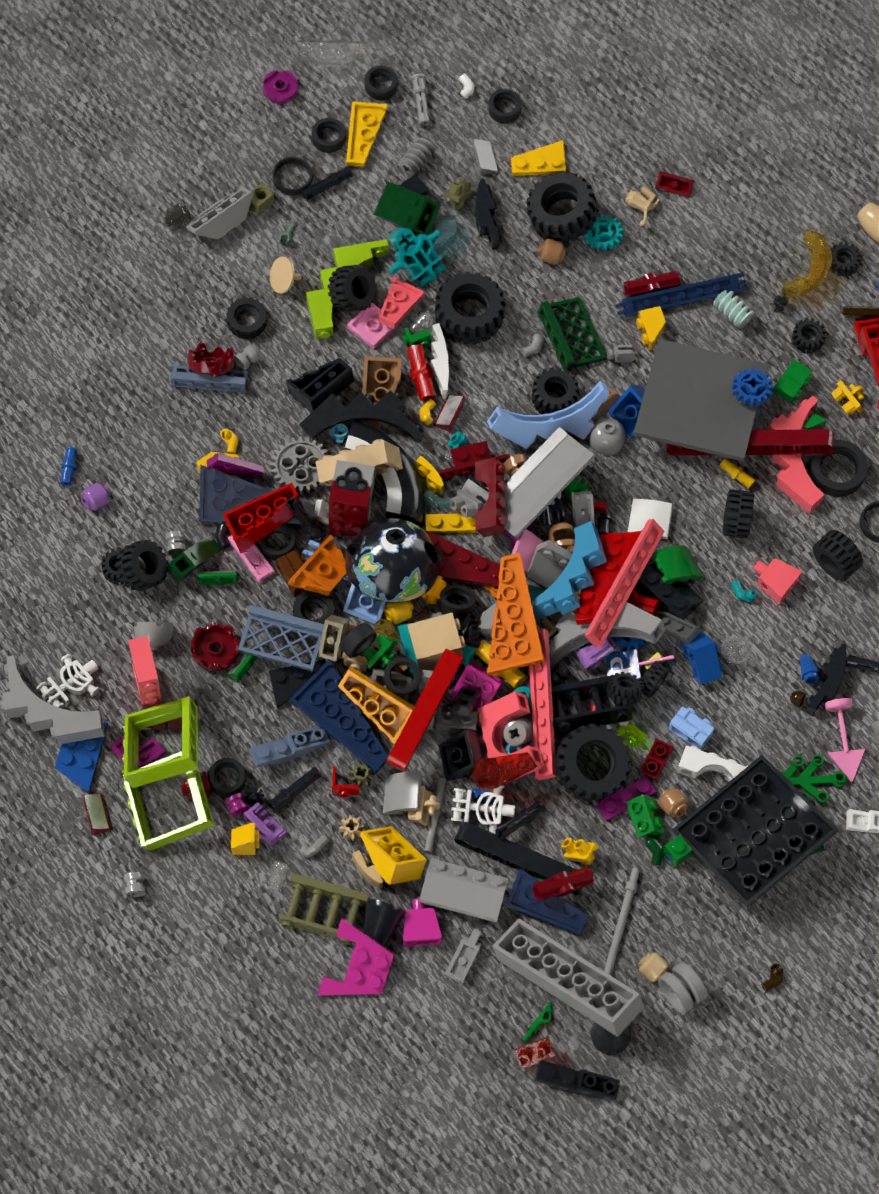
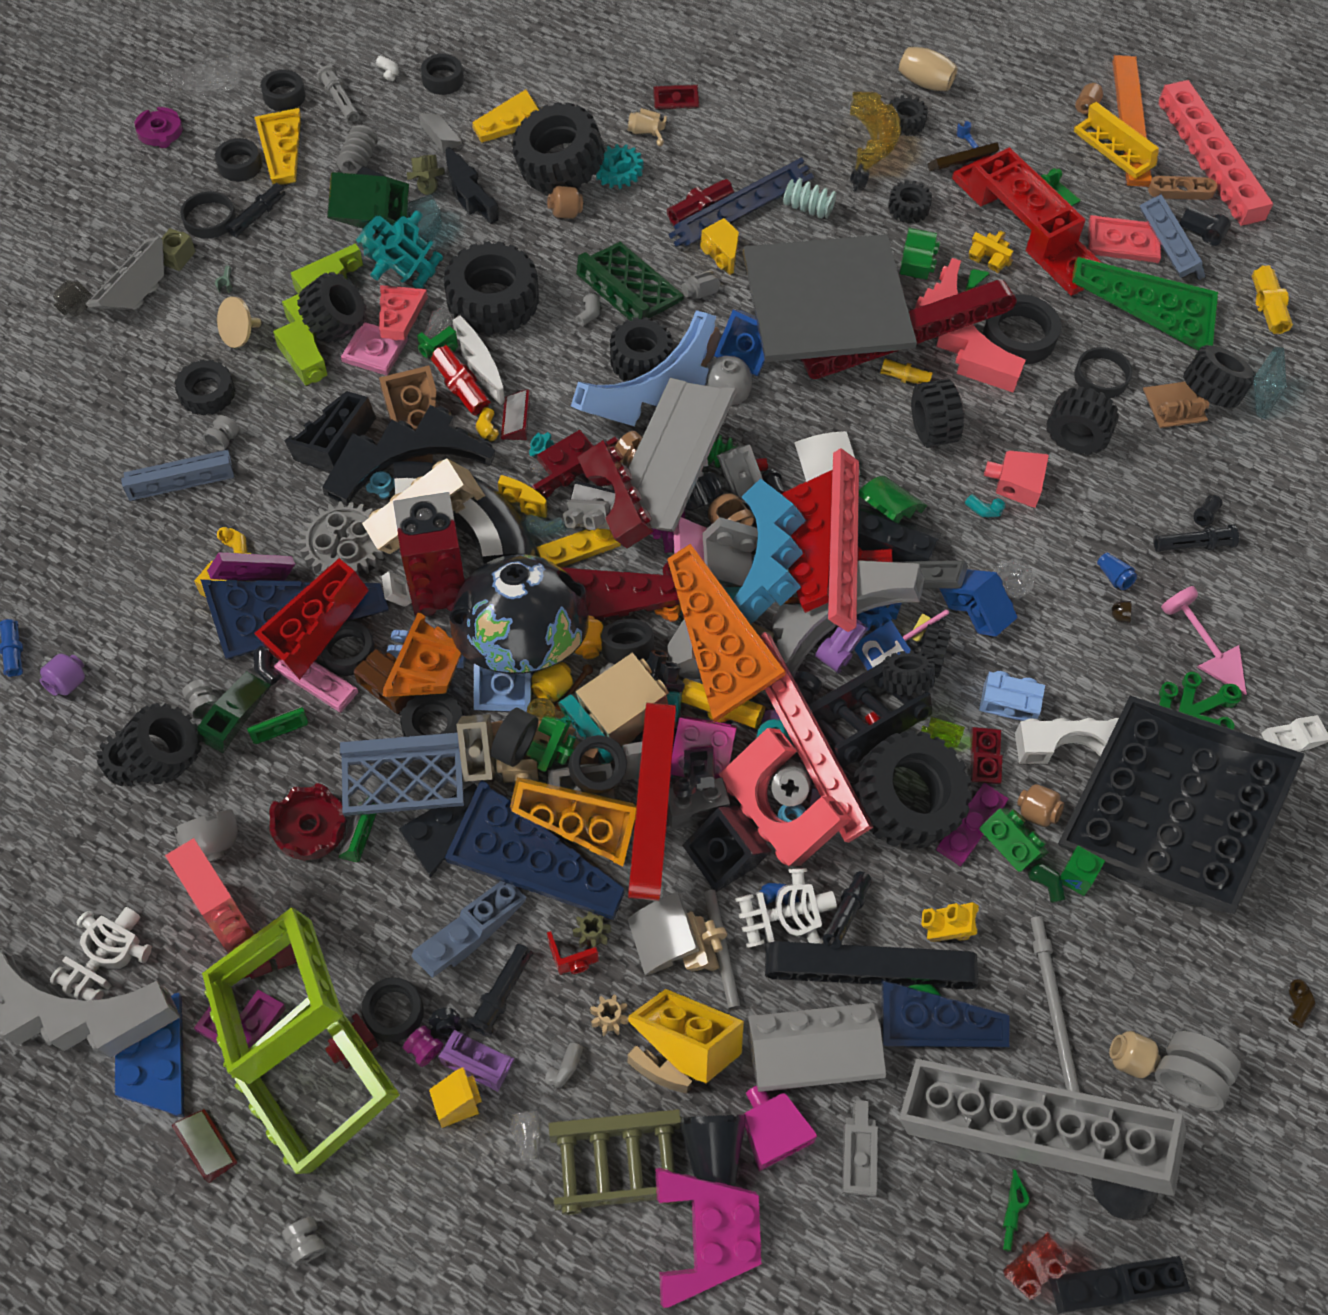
camera: 20 degrees left, 5 degrees down
(212, 362) = (179, 450): dark red plate -> none
(309, 524) = (384, 608): black pin -> none
(497, 771) = (797, 846): clear red slope -> none
(563, 883) = (957, 980): dark red piece -> none
(752, 387) = (886, 260): blue gear -> none
(831, 679) = (1152, 572): black slope -> none

